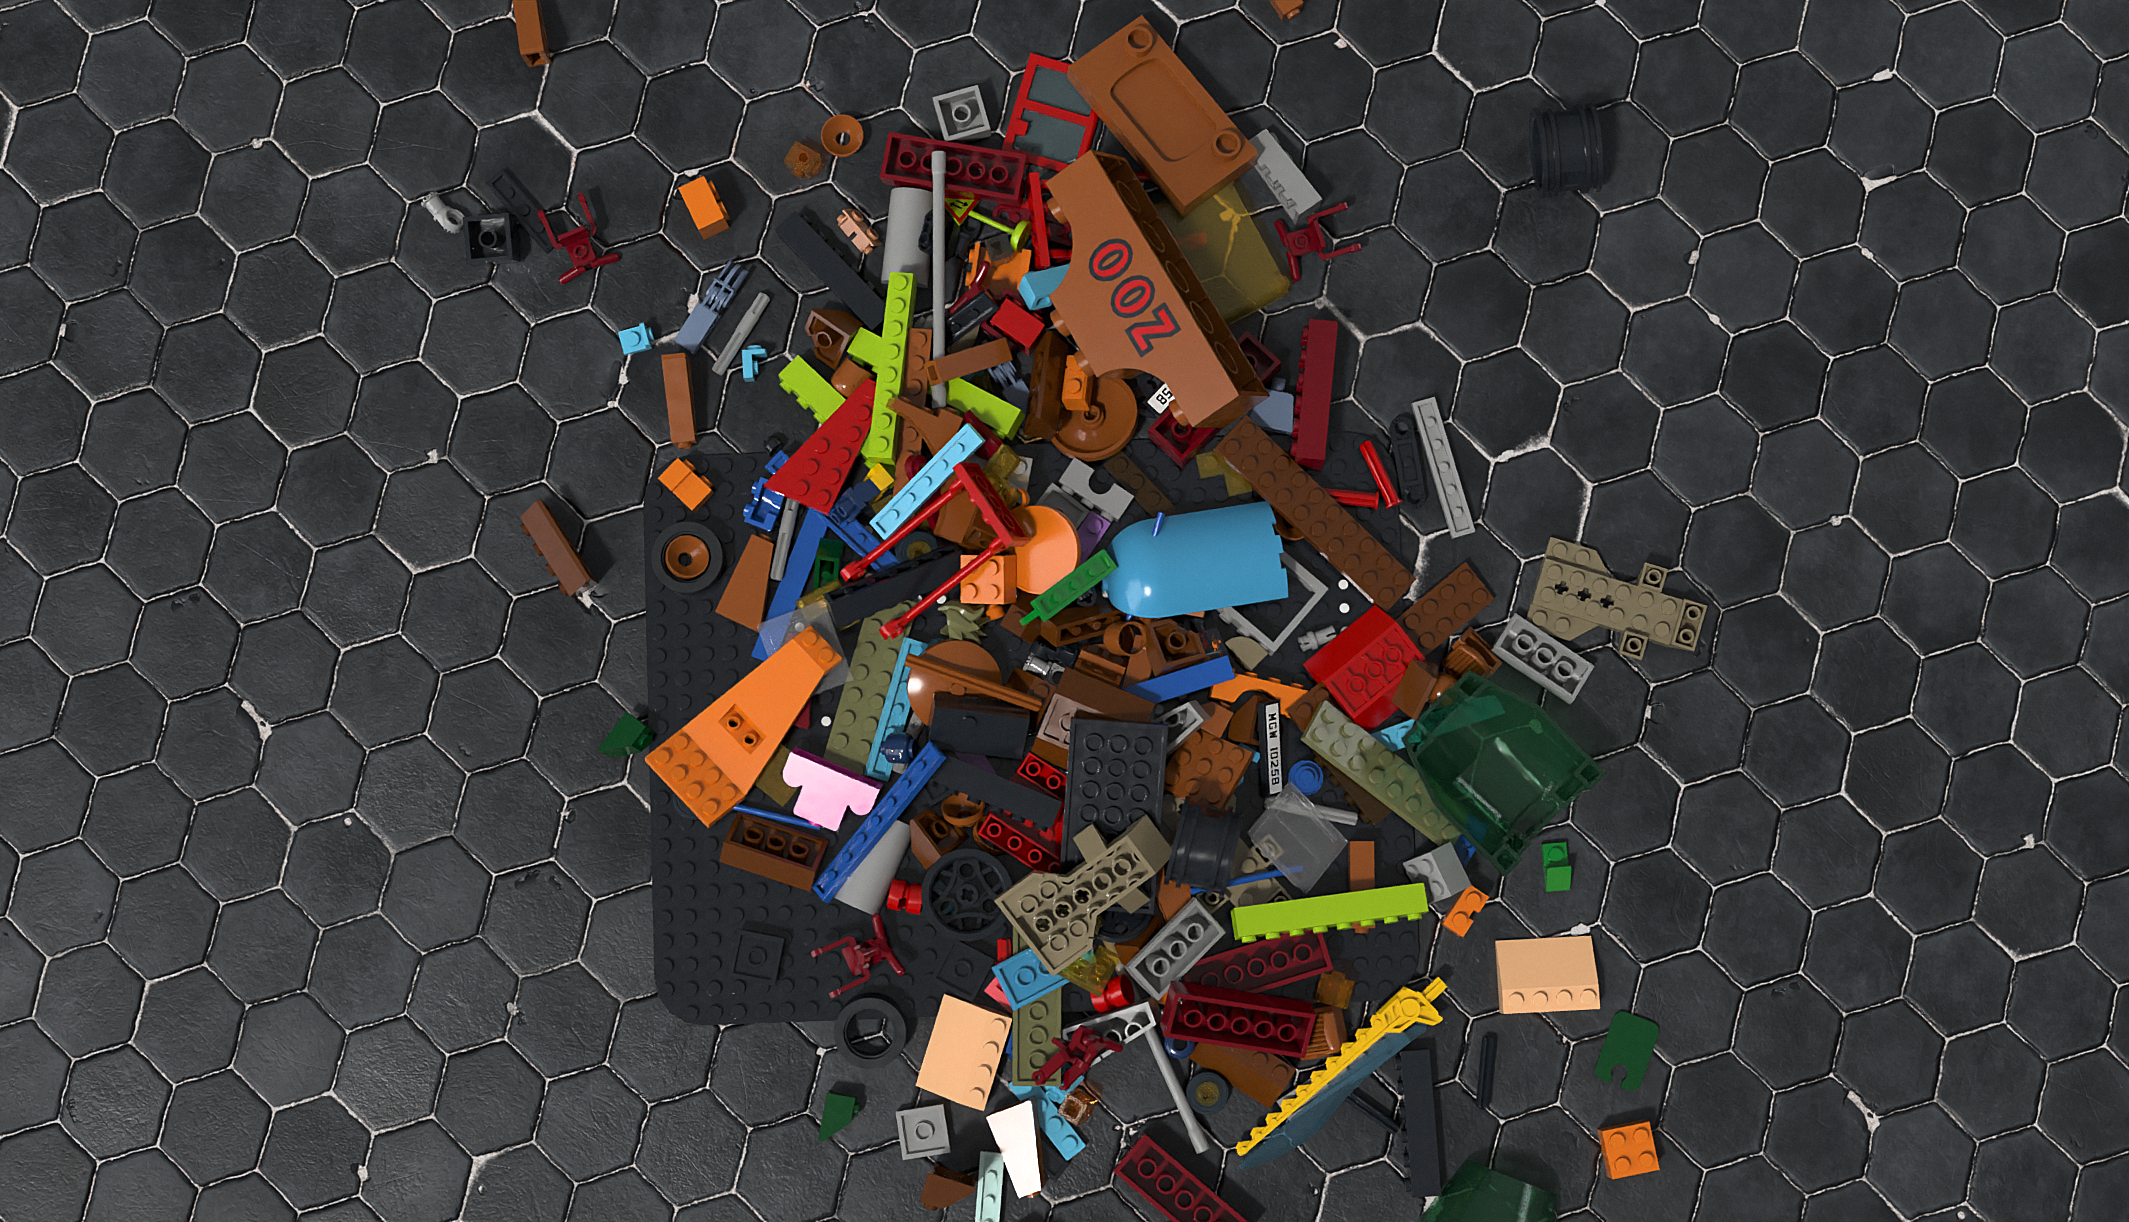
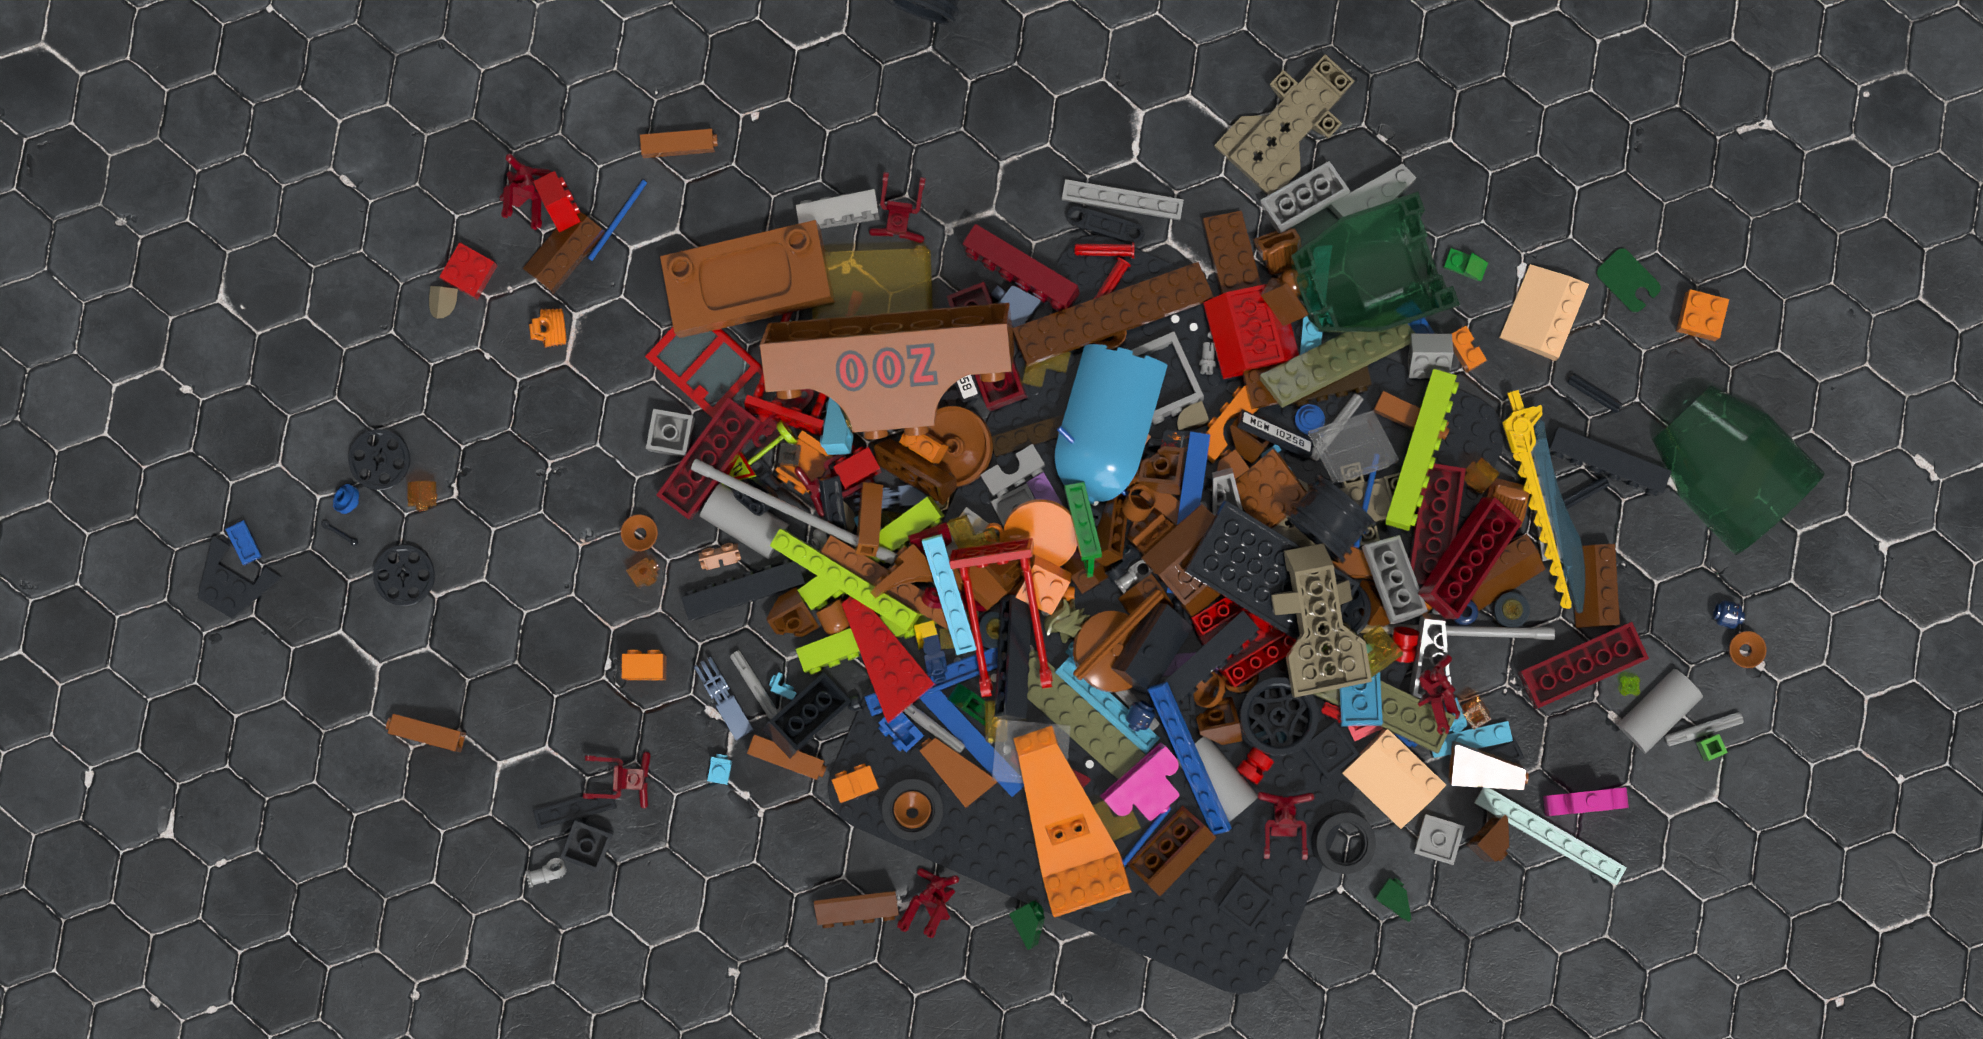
camera: 65 degrees left, 0 degrees up
(606, 624) = (934, 900): none -> dark red piece
(732, 398) = (806, 715): none -> black brick
(1276, 1178) = (1601, 588): none -> reddish brown slope
(1587, 733) = (1376, 192): none -> light grey wedge

